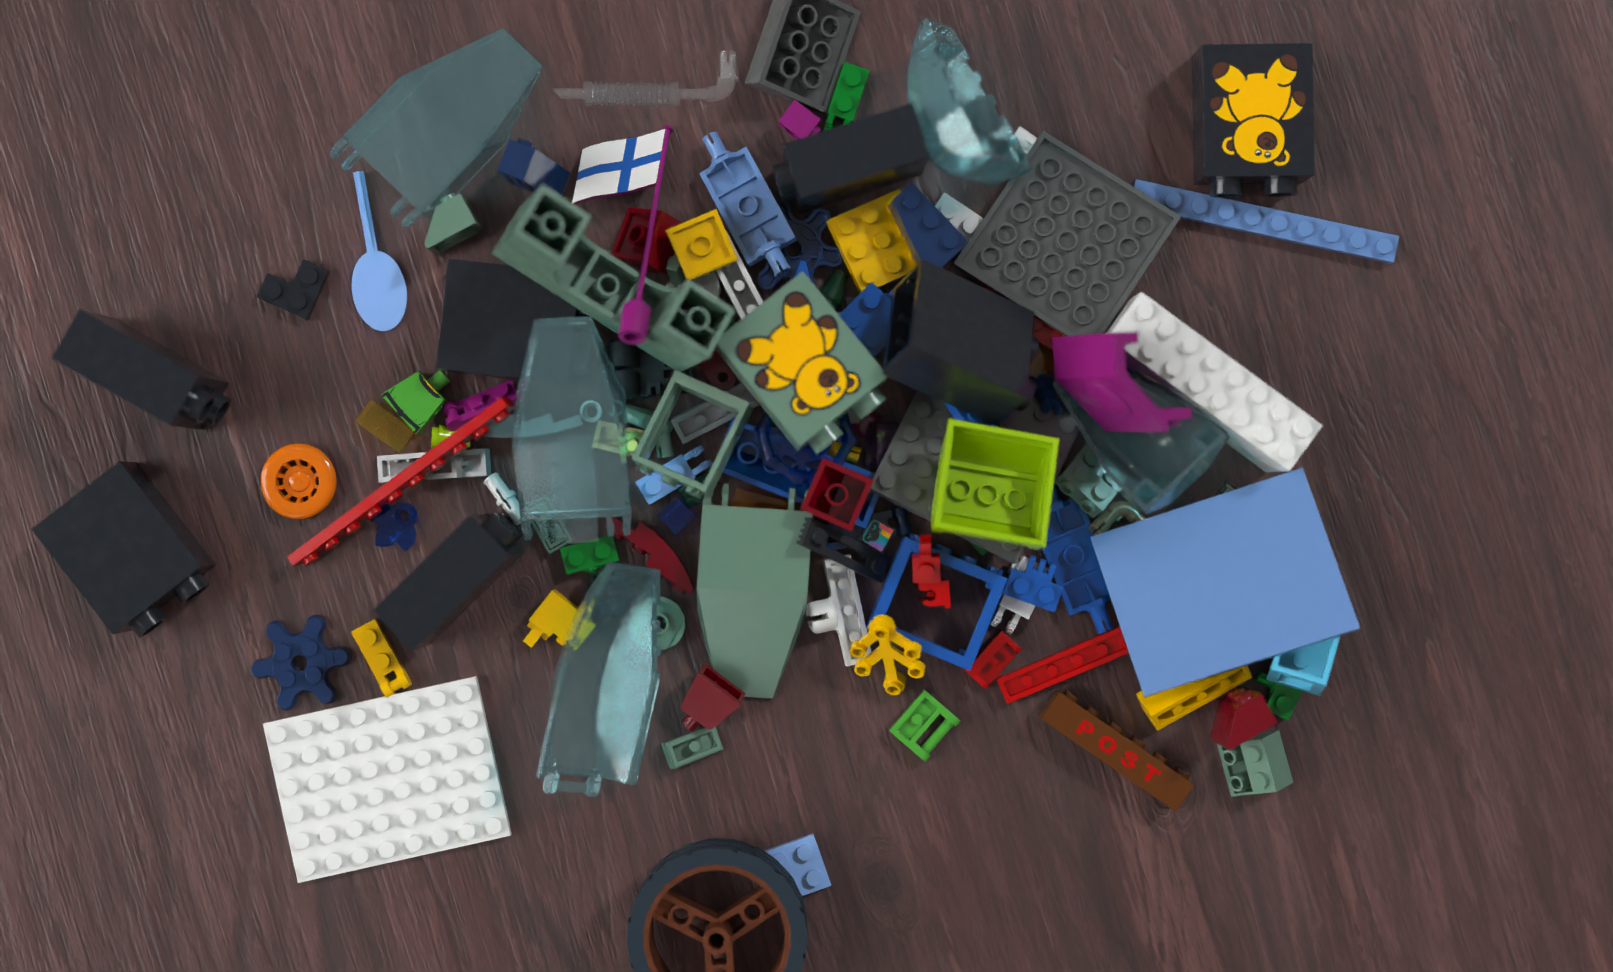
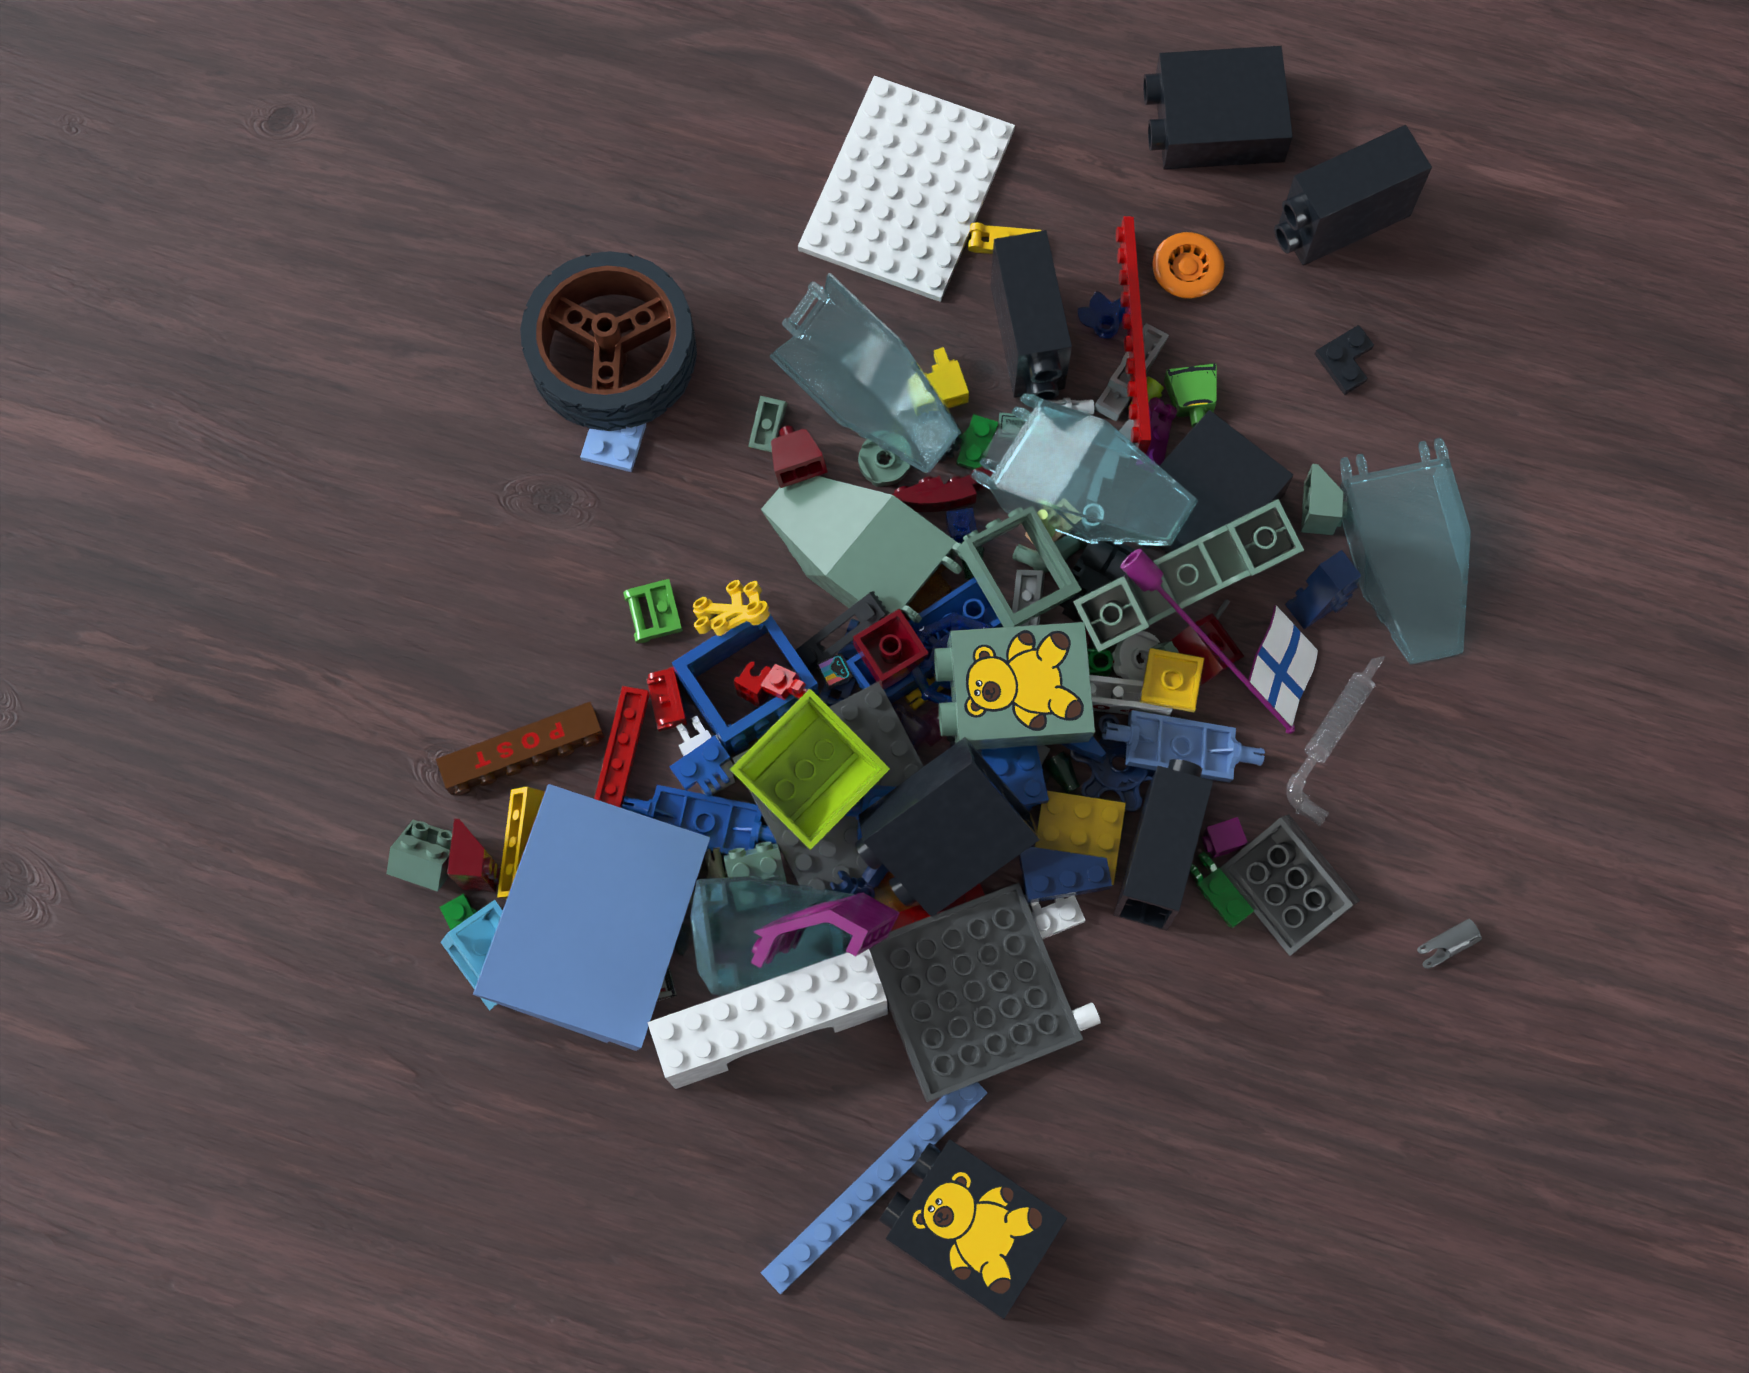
camera: 125 degrees right, 15 degrees down
(318, 656) = (1037, 196): dark blue plate -> none
(377, 279) = (1315, 425): light blue piece -> none
(385, 426) = (1188, 354): clear yellow plate -> none
(655, 489) = (998, 550): light blue hinge -> none
(840, 609) = (794, 605): white plate -> none
(955, 113) = (1146, 967): clear light blue windscreen -> none

